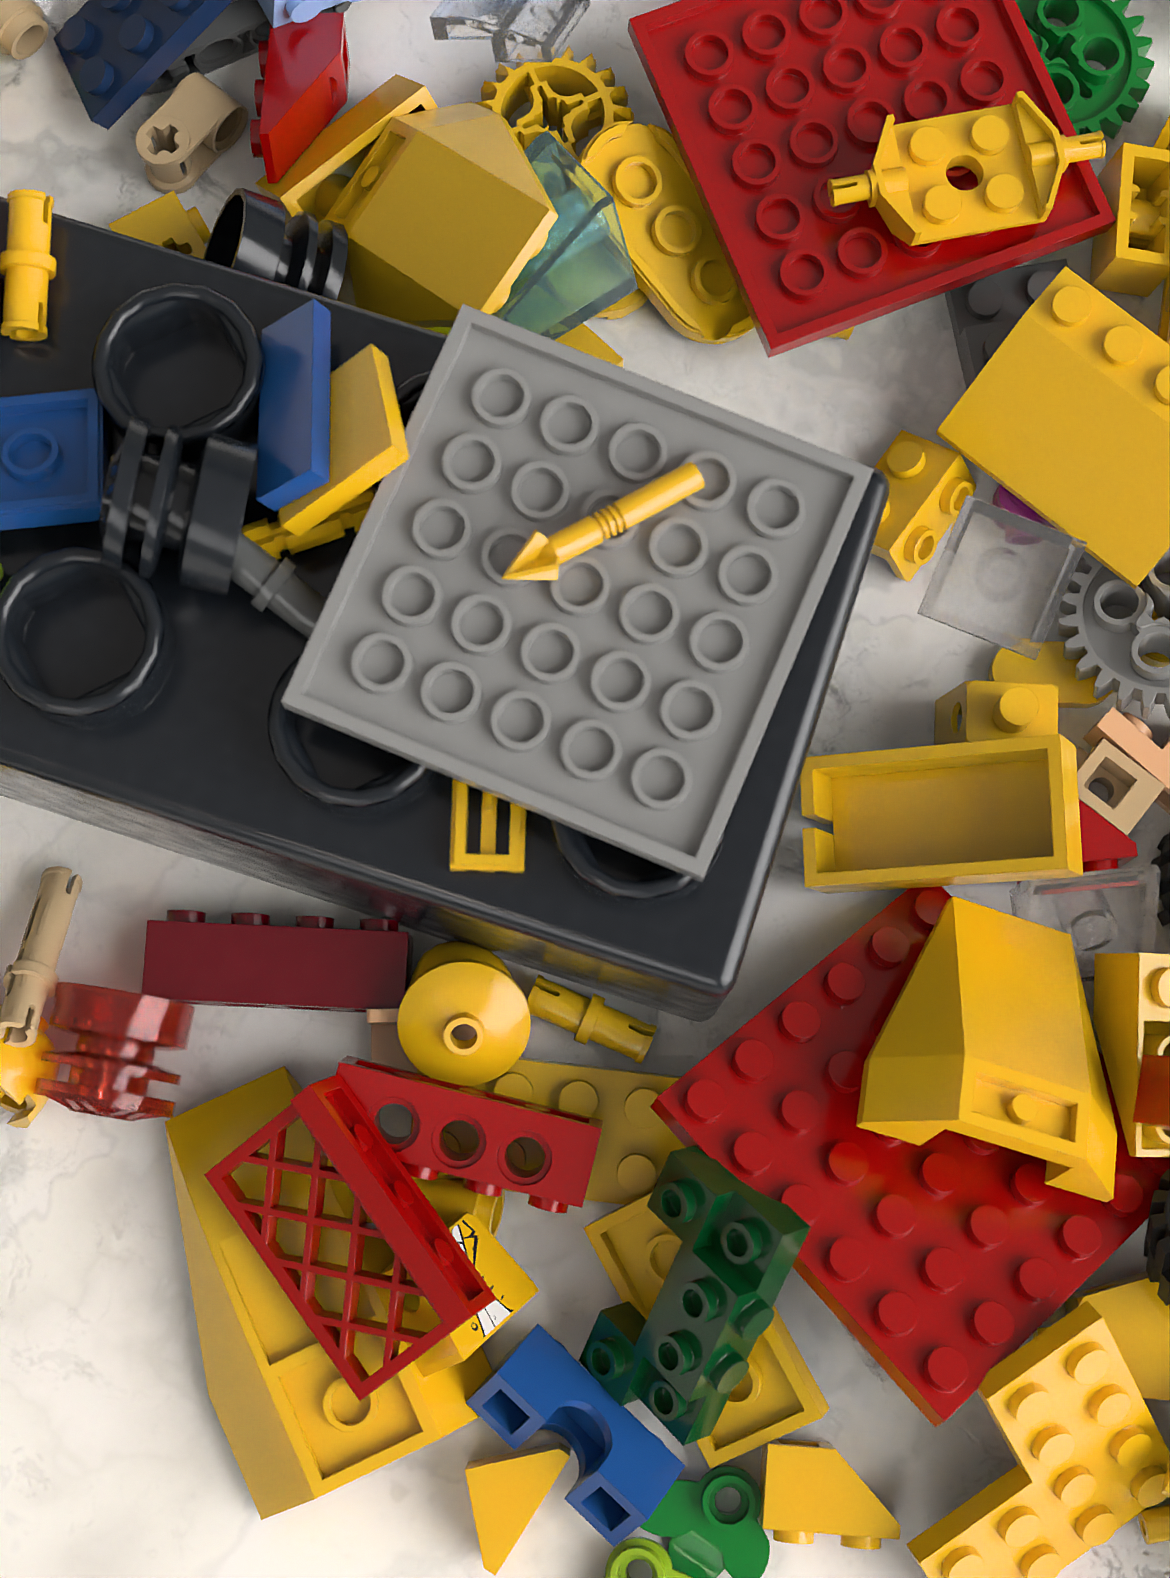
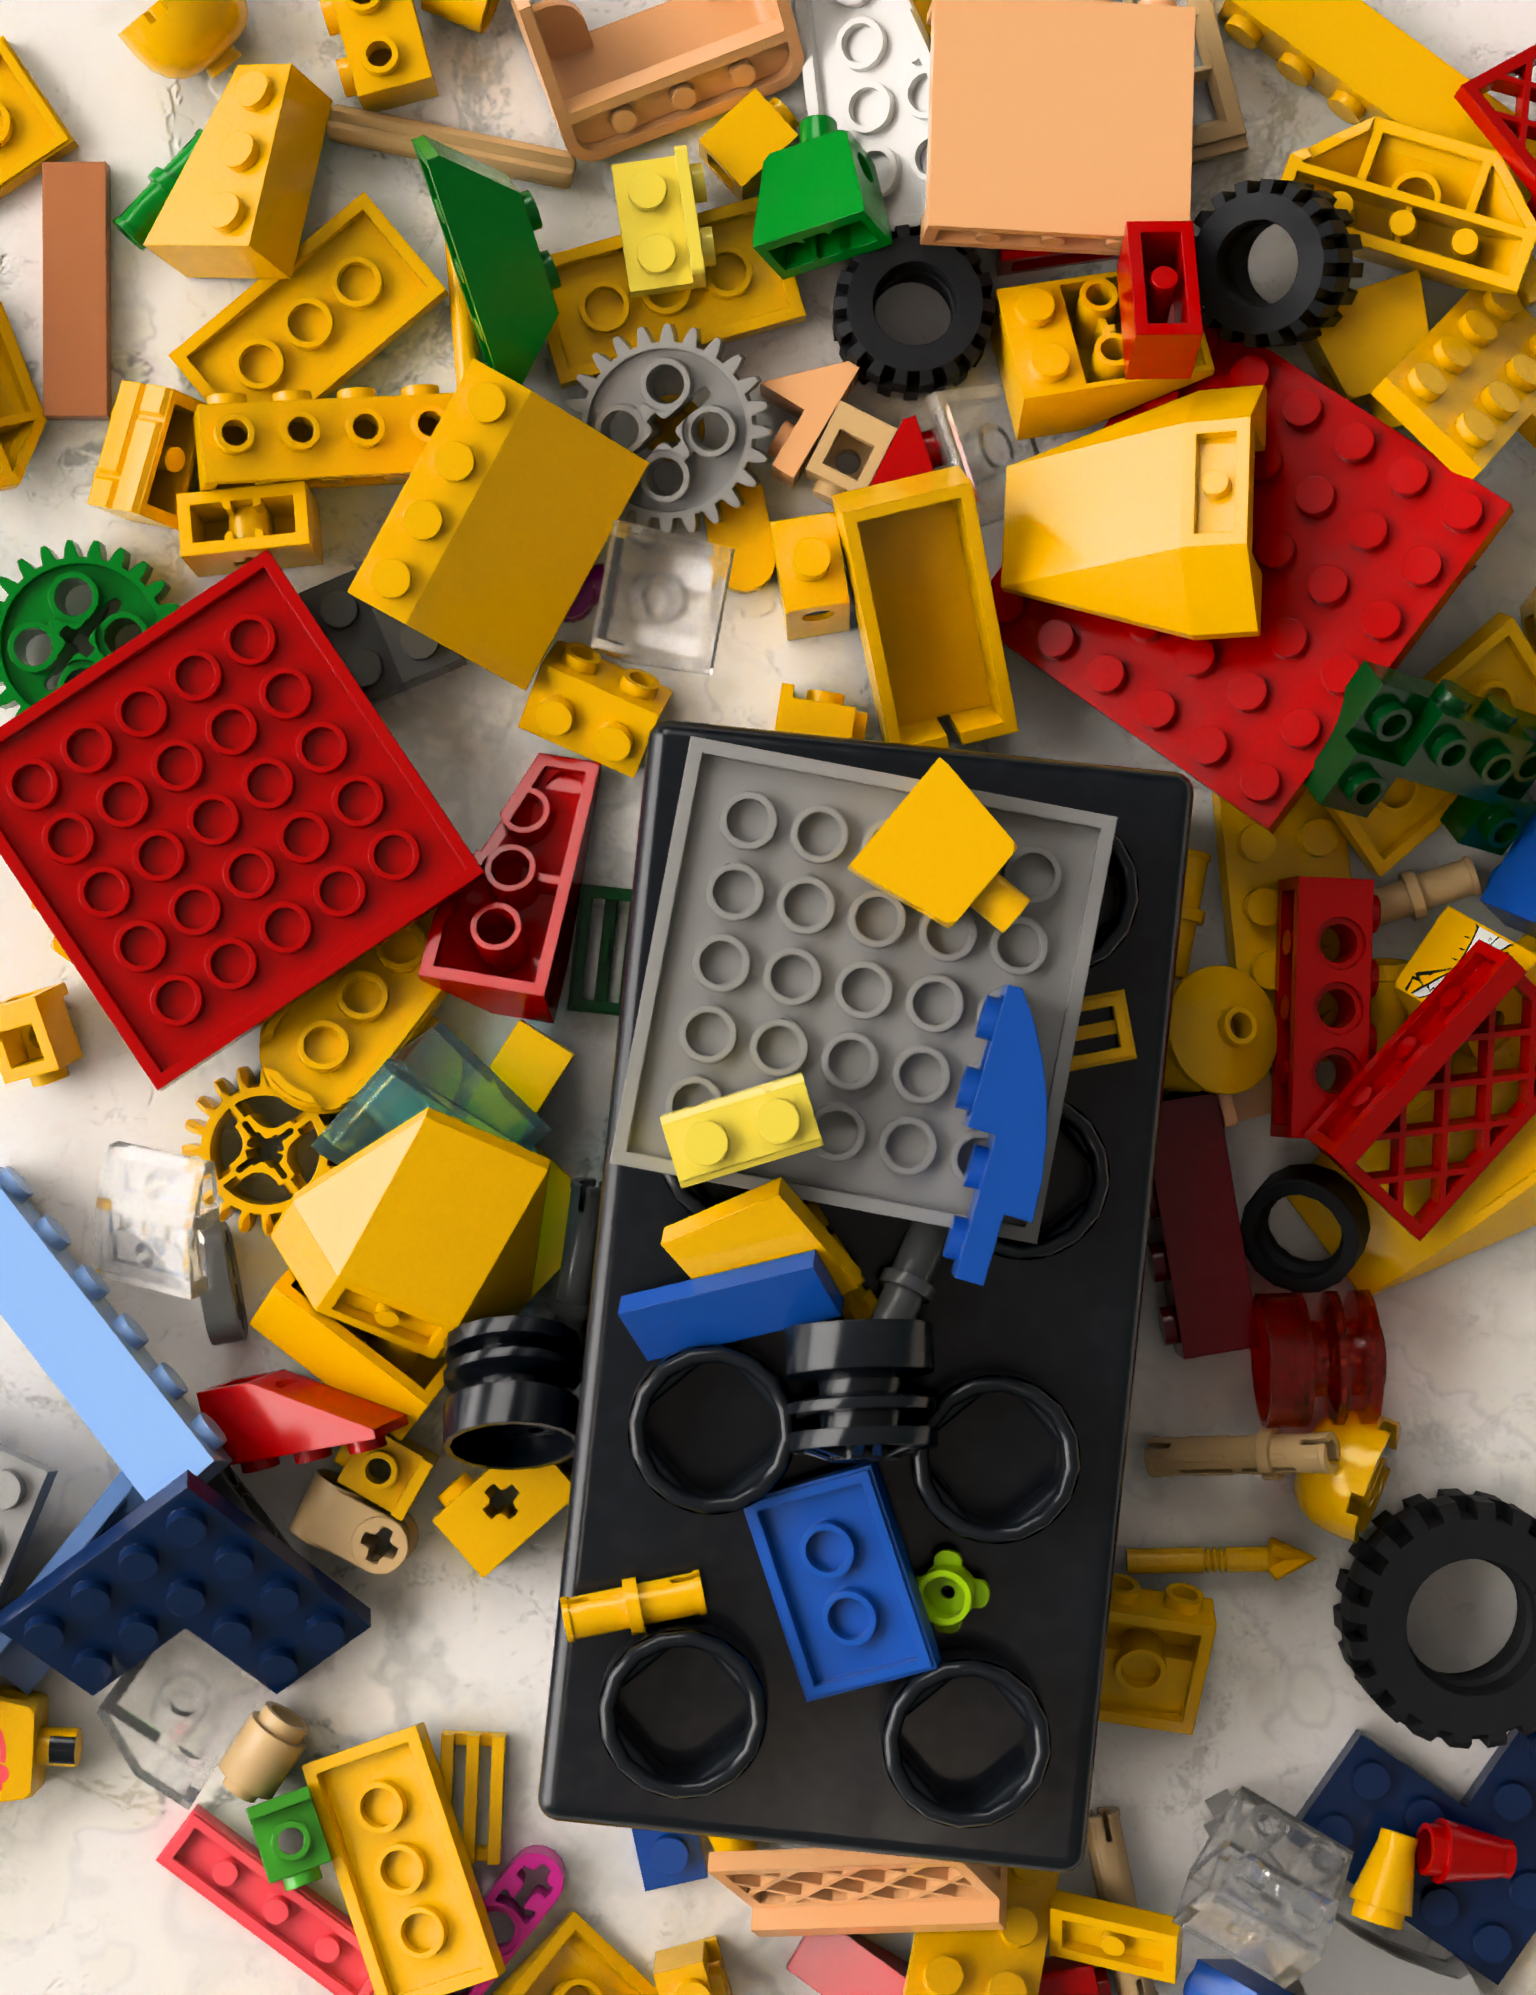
camera: 100 degrees left, 10 degrees up
(212, 170) = (409, 1471): none -> yellow brick
(222, 1040) = (1279, 1265): none -> black tyre
(427, 693) = (1011, 1104): none -> blue slope
(439, 62) = (224, 1302): none -> dark grey beam
(464, 420) = (741, 1130): none -> light yellow brick
(542, 555) = (850, 1027): yellow piece -> none
(558, 1269) = (1427, 890): none -> tan pin
(703, 678) = (943, 854): none -> yellow torso
(711, 352) = (513, 929): none -> red wedge
(851, 704) = (819, 714): none -> yellow brick
(1006, 147) = (217, 676): yellow plate -> none

